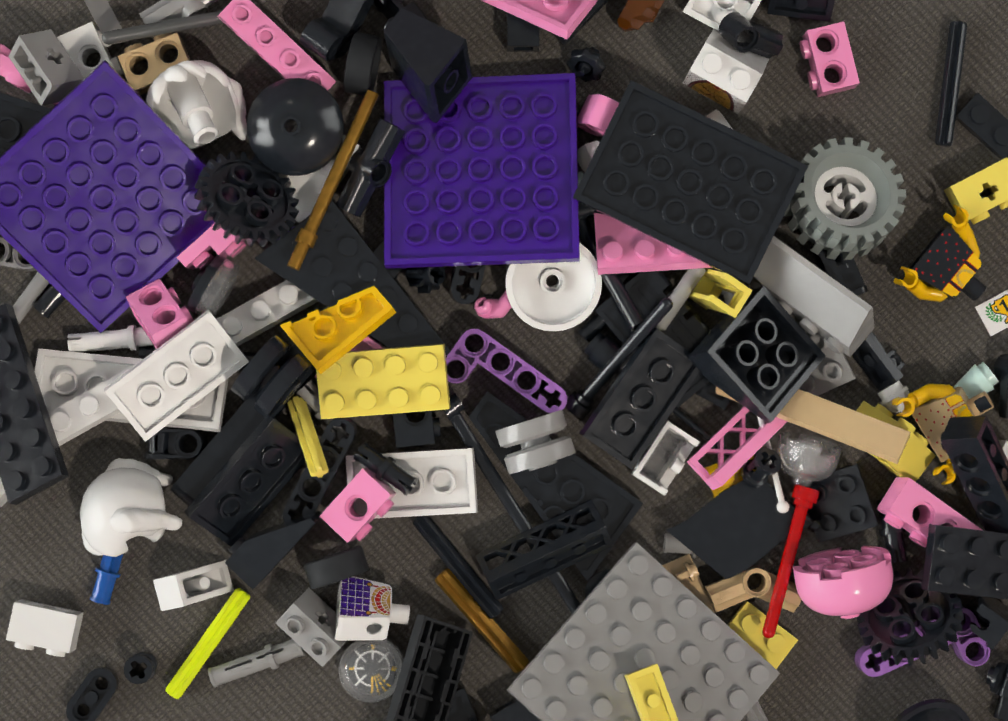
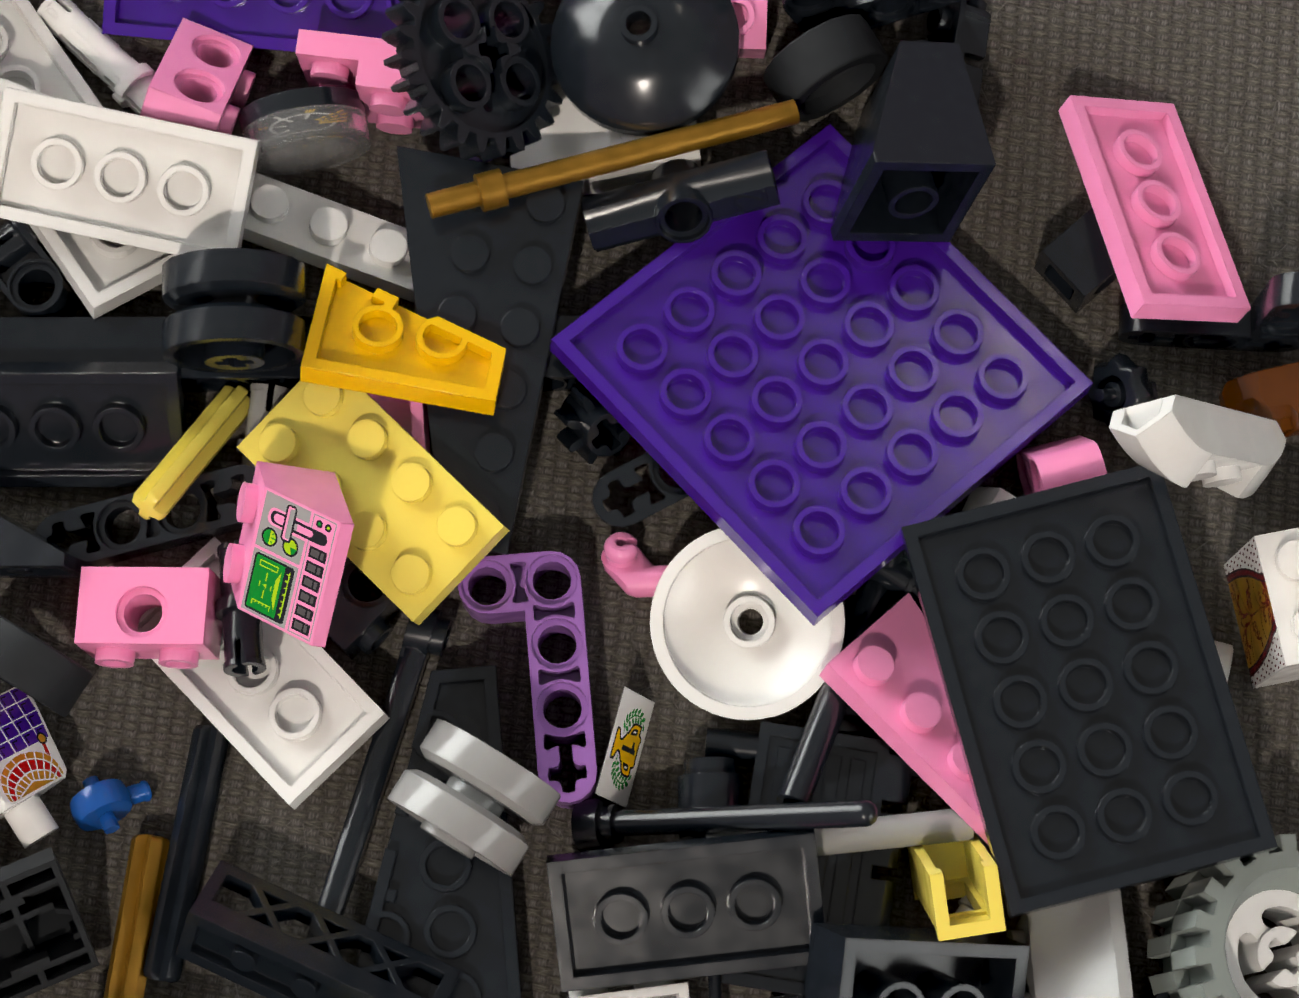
camera: 55 degrees right, 10 degrees down
(386, 432) = (290, 549): none -> slope
(413, 580) = (106, 802): none -> blue piece
(559, 368) = (625, 747): none -> white sticker
(639, 58) = (1200, 441): none -> white brick

